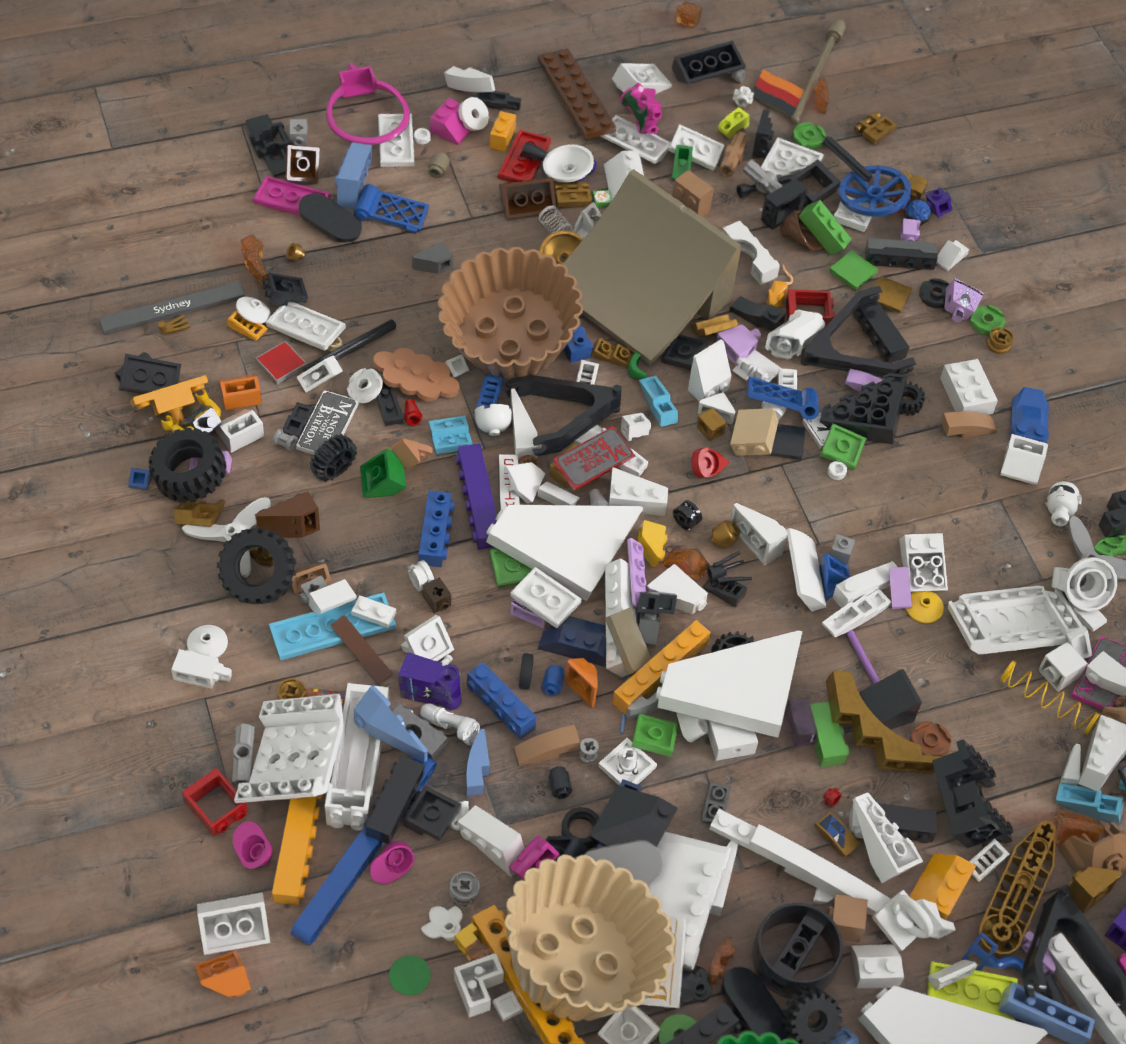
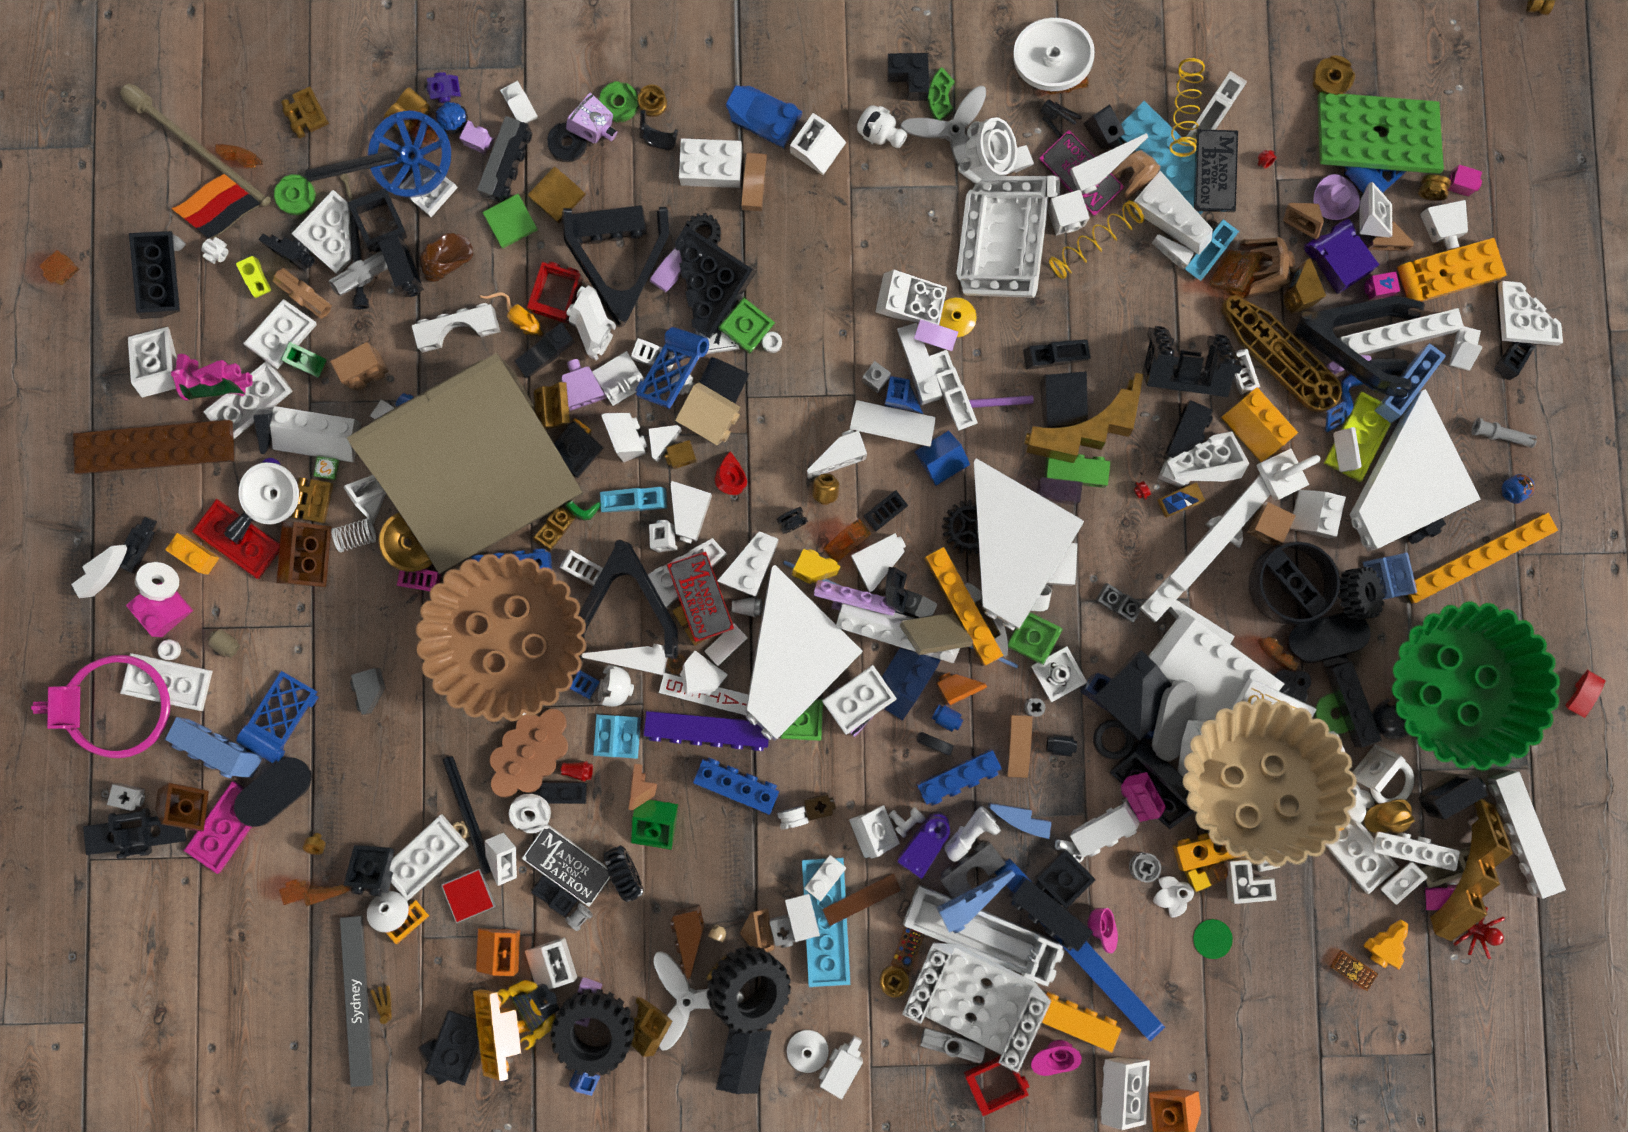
camera: 70 degrees left, 30 degrees up
(188, 588) = (743, 1062): none -> black slope
(298, 545) = (717, 933): none -> tan hinge
(612, 150) = (262, 423): none -> black slope
(664, 440) = (689, 510): none -> white slope
(718, 570) = (869, 513): black plant -> none
(790, 618) = (943, 457): none -> blue slope
(825, 227) = (453, 233): bright green brick -> none
(930, 692) = (1056, 354): none -> black slope
(932, 738) = (1106, 372): dark orange tile -> none
(940, 926) = (1295, 450): white slope -> none
(970, 346) = (654, 137): none -> black helmet

